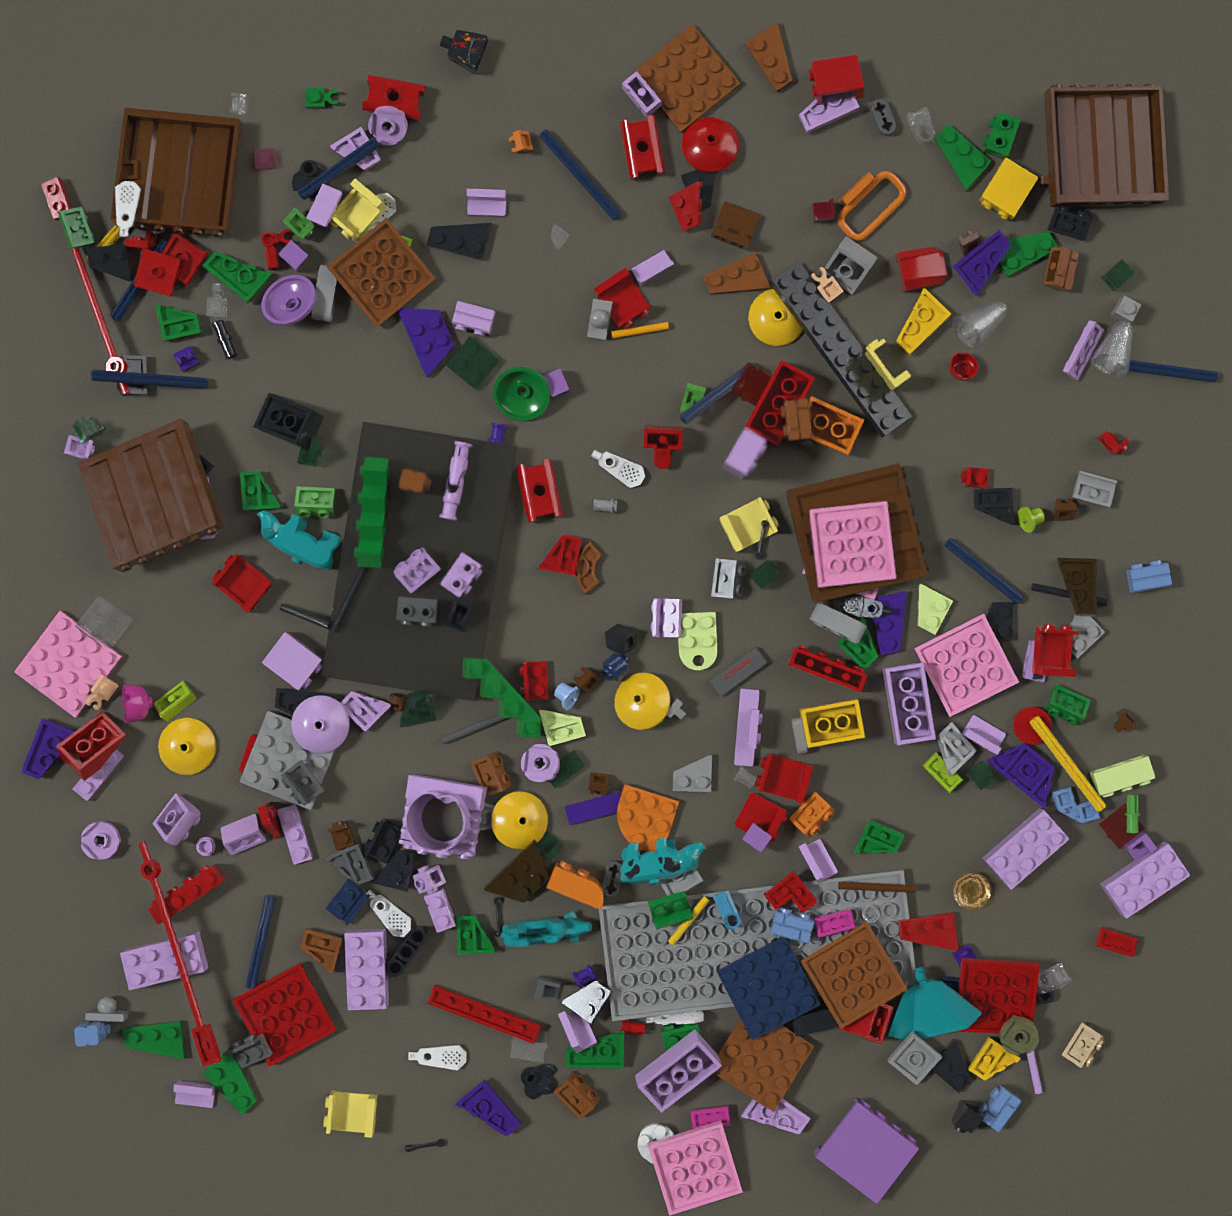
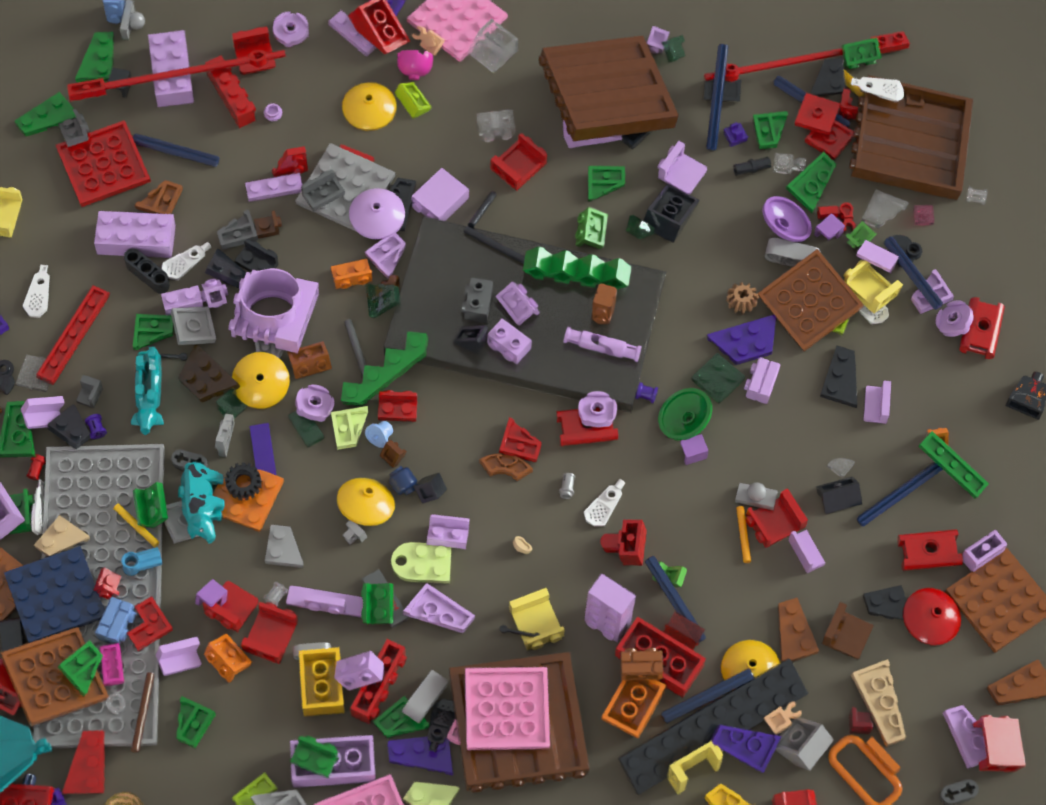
camera: 90 degrees right, 25 degrees down
(128, 877) = (249, 41): none -> red bracket
(176, 820) = (300, 88): lavender brick -> none
(182, 1013) = (119, 74): none -> black panel
(194, 1093) = (41, 84): lavender panel -> none
(201, 610) = (495, 125): none -> clear brick
(237, 412) = (680, 169): none -> lavender bracket
(242, 834) = (277, 140): lavender panel -> none
(261, 202) = (882, 208): none -> clear wing
(298, 544) = (554, 206): teal animal -> none
(317, 98) = (983, 265): green plate -> none
(347, 902) = (202, 224): dark blue plate -> none
(388, 338) = (737, 293): none -> medium nougat gear
(389, 743) = (351, 274): none -> orange bracket
(466, 895) = (193, 325): none -> light grey plate
(521, 472) = (597, 419): none -> lavender plate
(551, 125) = (953, 464): none -> green plate
(576, 884) = (188, 422): orange brick -> none
(589, 237) = (840, 494): none -> black panel
(590, 849) = (224, 435): none -> light grey wing
(598, 782) = (288, 455): reddish brown tile -> none
(635, 811) = (243, 470): none -> black tyre
(672, 545) = (521, 545): none -> tan piece
(688, 206) = (868, 587): red wing -> none
(708, 992) = (60, 537): none -> tan wing
(728, 578) = (482, 596): bracket -> none
(747, 619) = (438, 609): none -> lavender wing
(748, 678) = (377, 603): none -> green bracket
(754, 939) = (107, 583): none -> bracket
(764, 573) = (484, 630): clear green brick -> none
(792, 195) = (878, 694): none -> tan wing
(812, 356) = (707, 695): none -> dark blue axle
(827, 688) = (359, 670): none -> lavender brick
(844, 950) = (82, 666): none -> green wing
(858, 317) = (747, 746): none -> dark purple wing
(913, 720) = (314, 756): none -> green bracket

